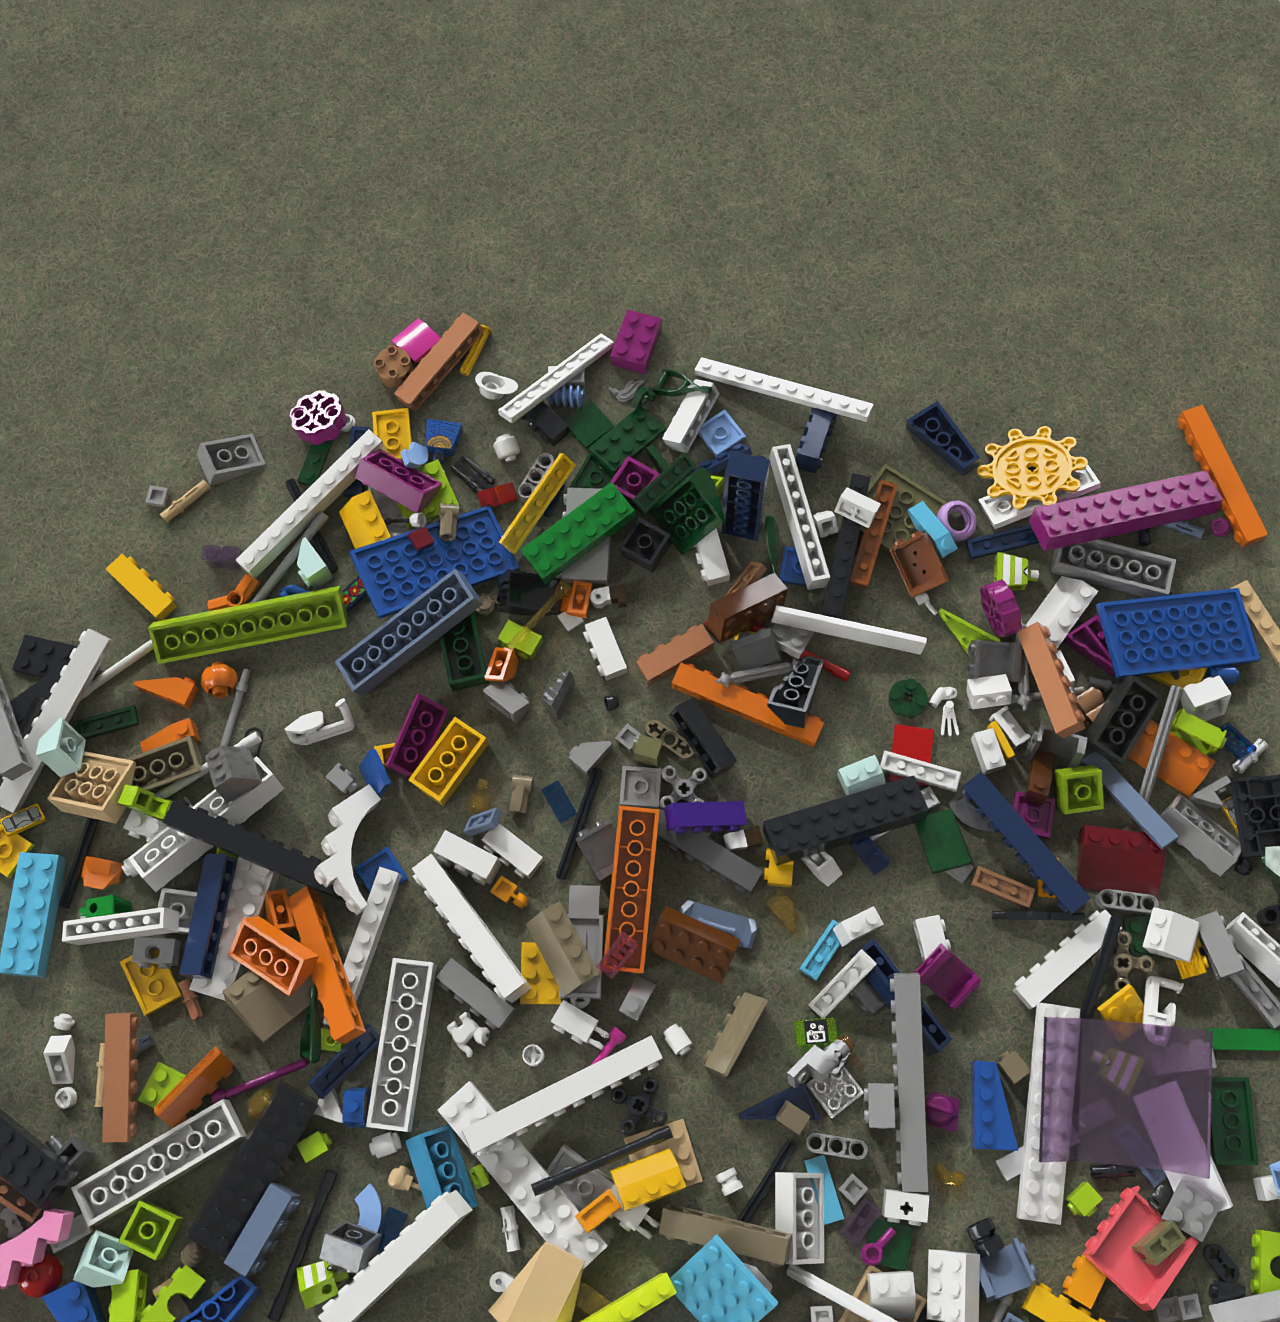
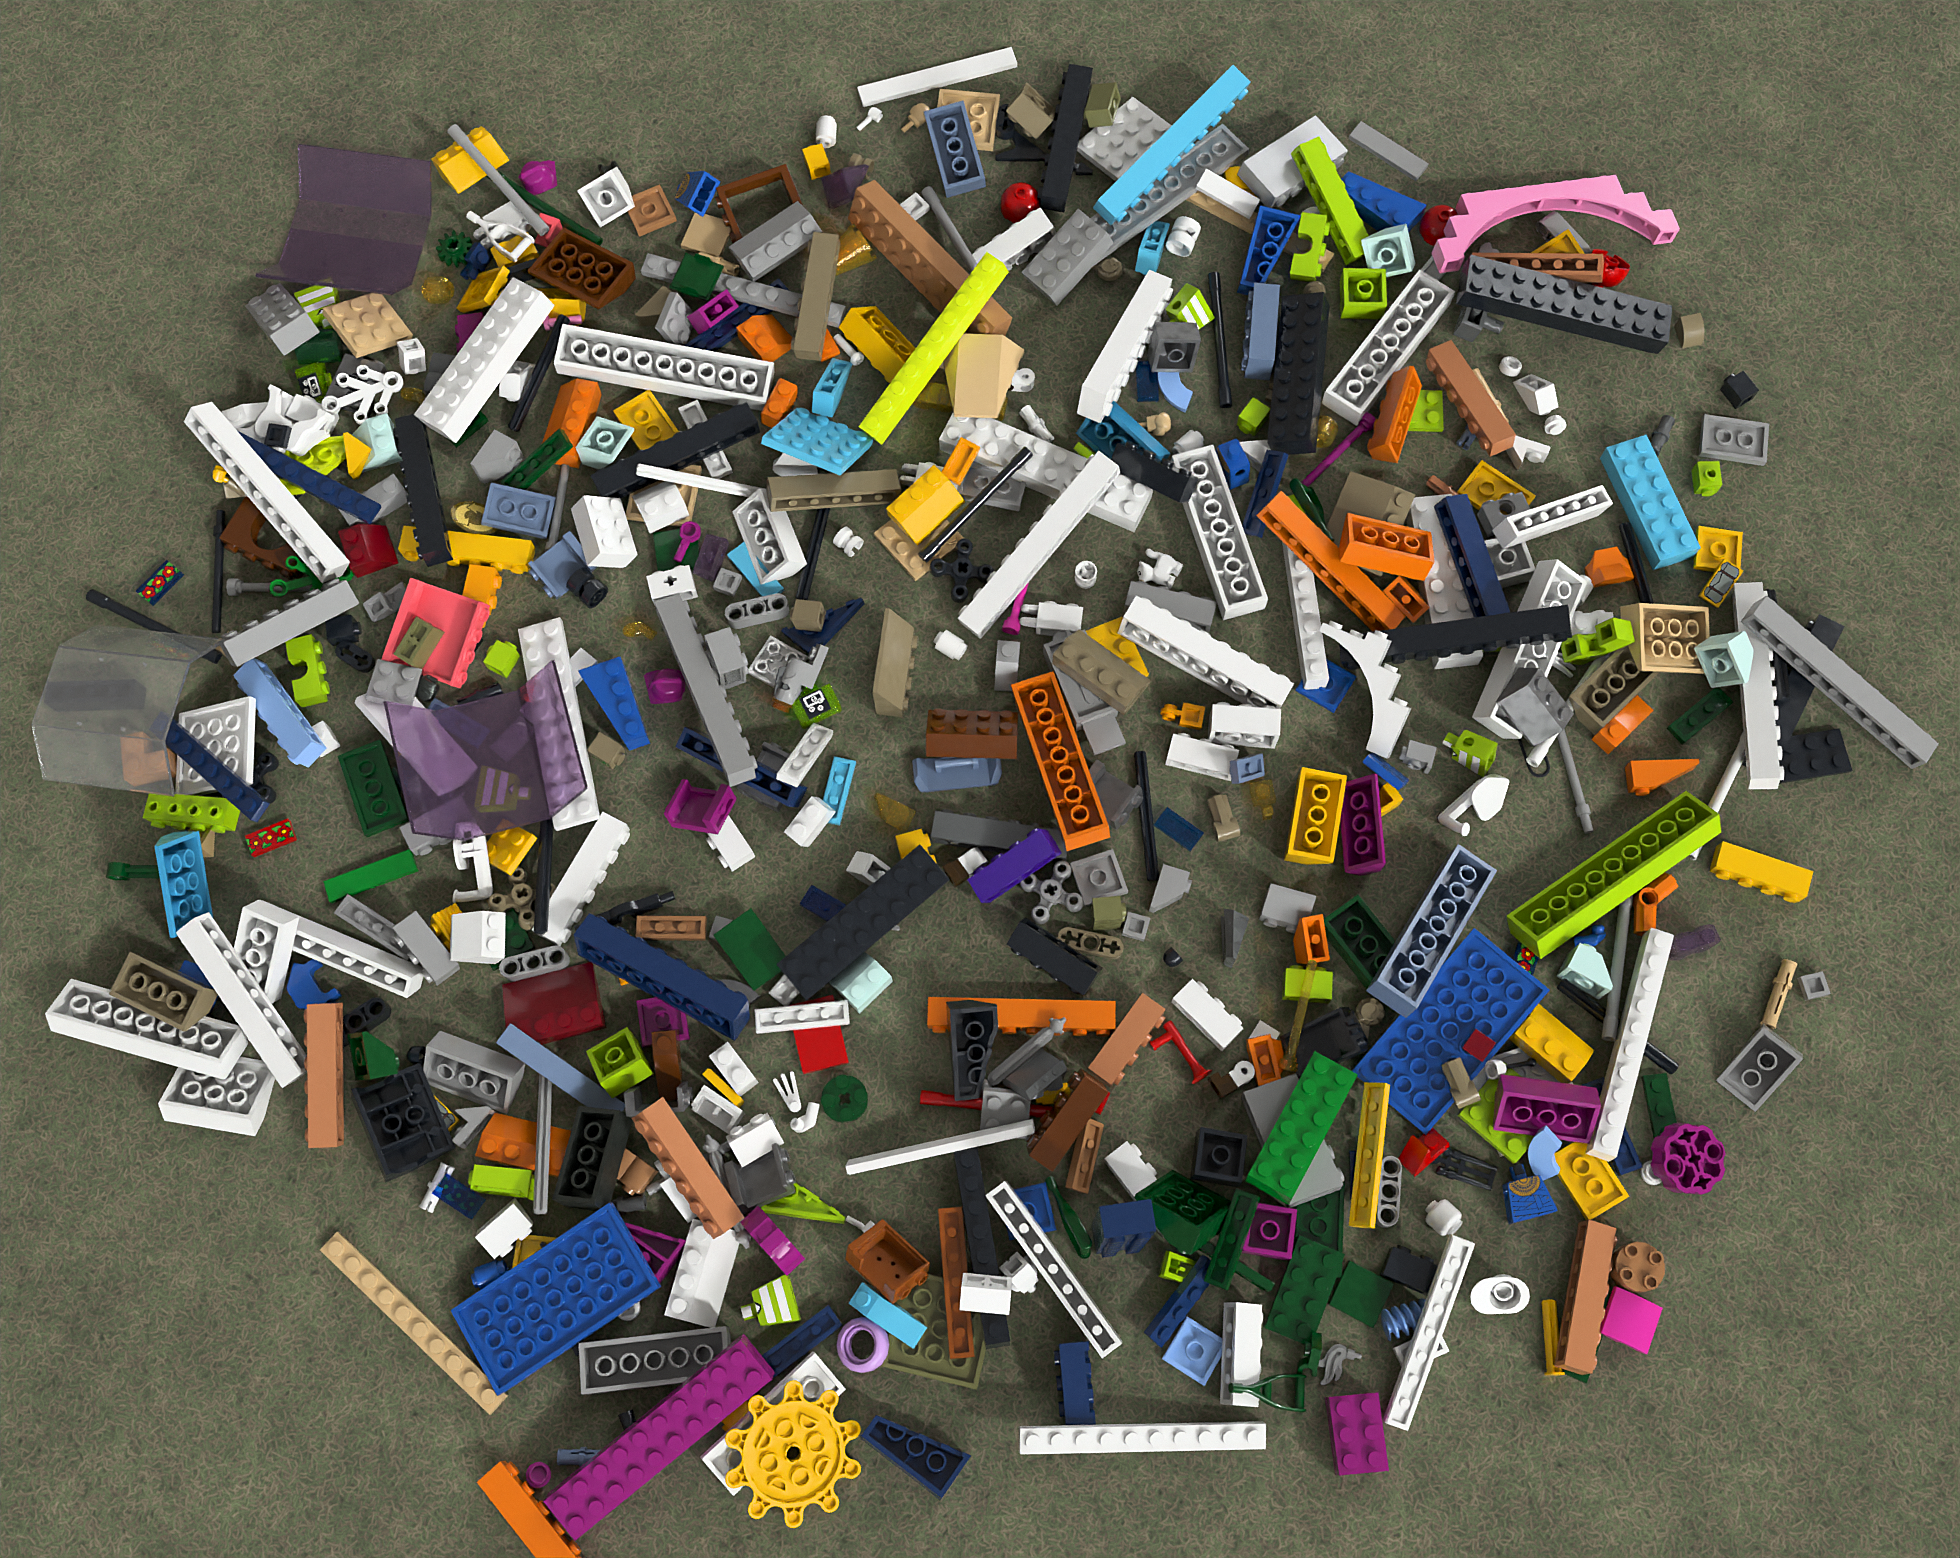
camera: 155 degrees right, 0 degrees up
(96, 1002) = (1523, 448): none -> white slope
(105, 906) = (1584, 530): green torso -> none
(218, 678) = (1611, 807): orange plant -> none
(294, 757) = (1472, 751): none -> lime torso
(432, 1120) = (1153, 472): none -> black brick
(626, 940) = (1040, 700): clear pink slope -> none
(636, 646) = (1173, 1034): none -> red piece

